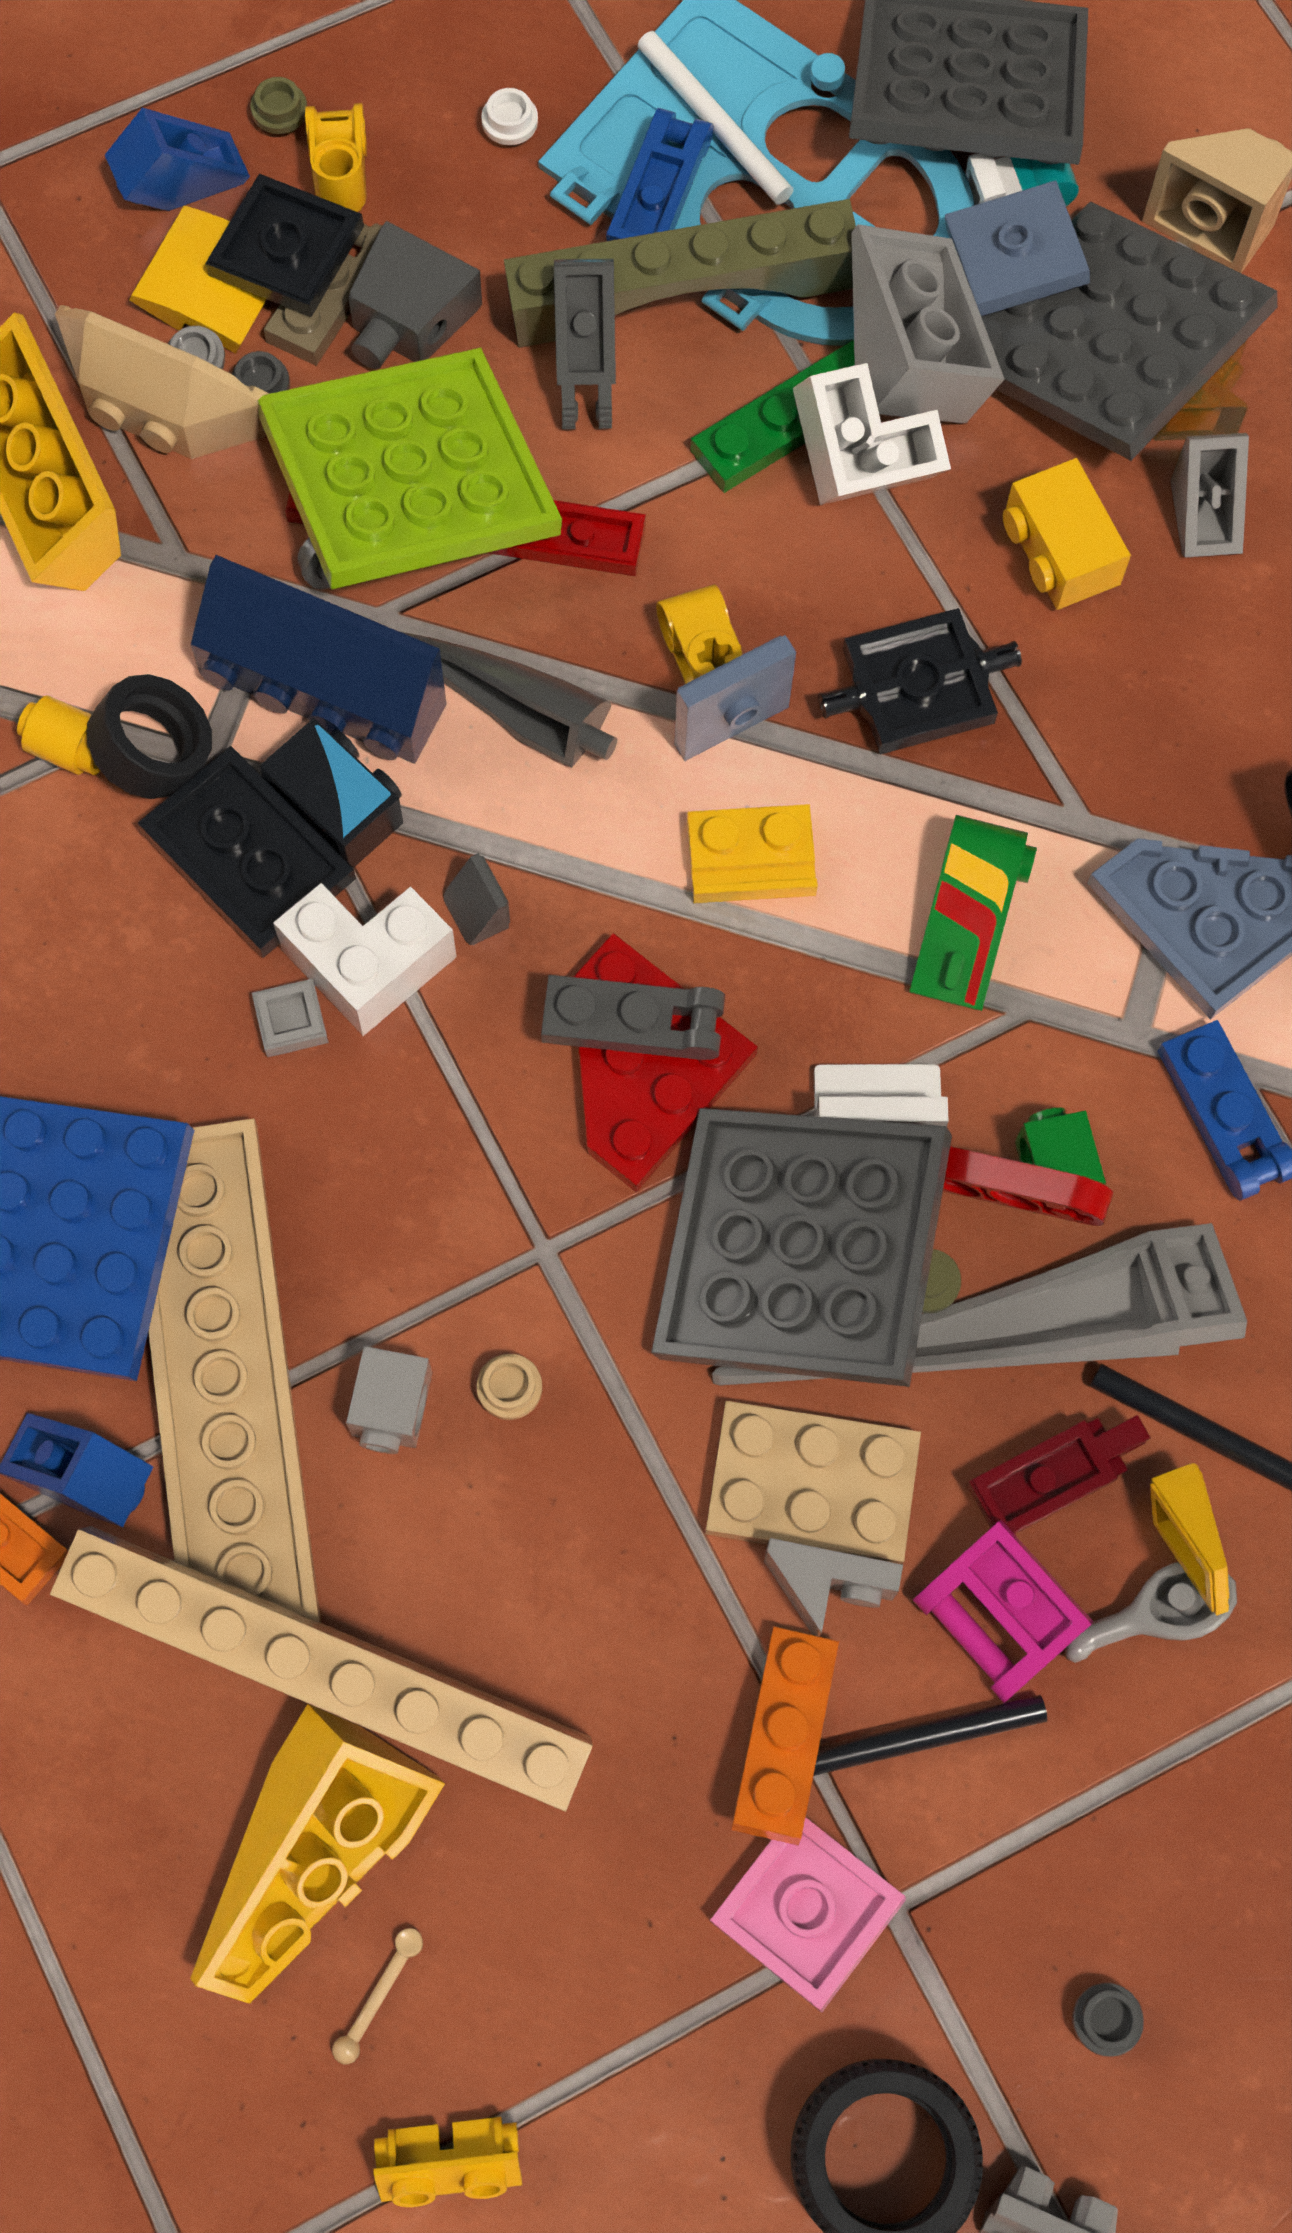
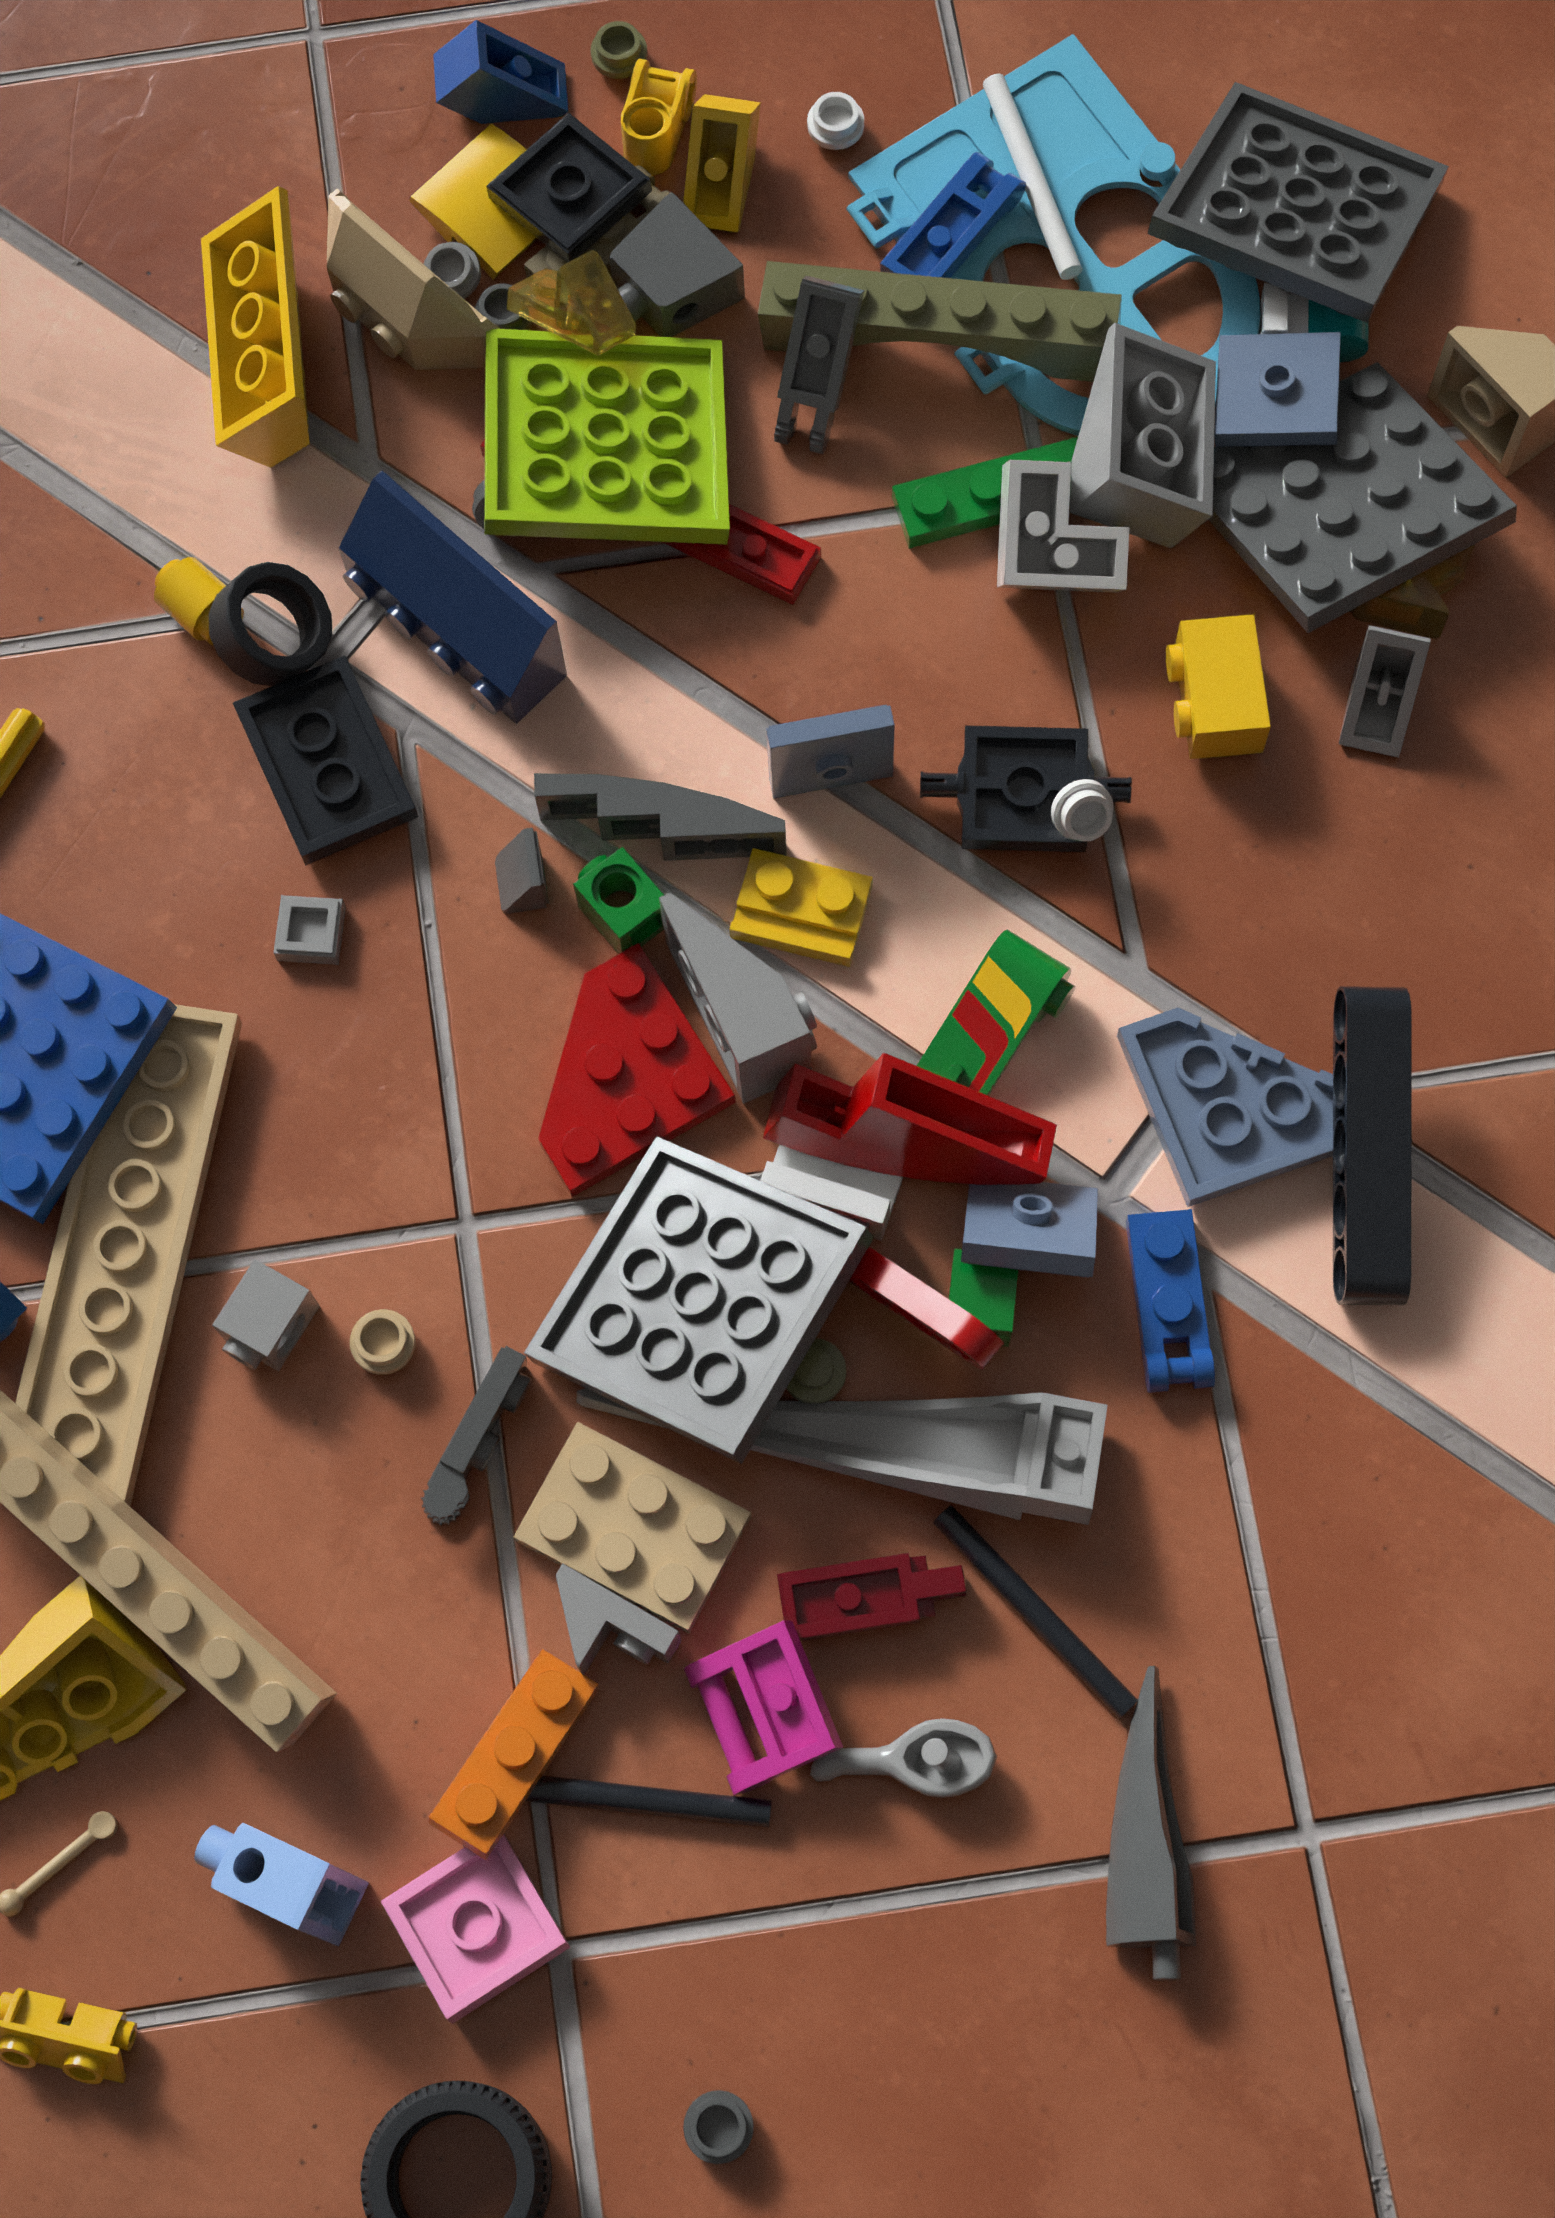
camera: 25 degrees right, 0 degrees up
(335, 791) = (424, 729): black brick -> none
(336, 351) = (575, 304): none -> clear yellow slope
(368, 966) = (401, 903): white brick -> none
(418, 179) = (721, 160): none -> yellow slope
(528, 702) = (643, 698): dark grey piece -> none
(591, 922) = (627, 924): none -> green brick
(612, 803) = (685, 819): none -> dark grey slope
(631, 1017) = (619, 1028): dark grey plate -> none
(634, 1450) = (473, 1439): none -> dark grey hinge
(636, 1934) = (281, 1881): none -> light blue torso
(698, 631) = (827, 674): yellow piece -> none
(749, 954) = (741, 1000): none -> light grey slope
(935, 1023) = (910, 1126): none -> red slope
(988, 683) = (1082, 810): none -> white plate
(1083, 1080) = (1032, 1227): none -> sand blue plate
(1189, 1528) = (971, 1683): yellow slope -> none

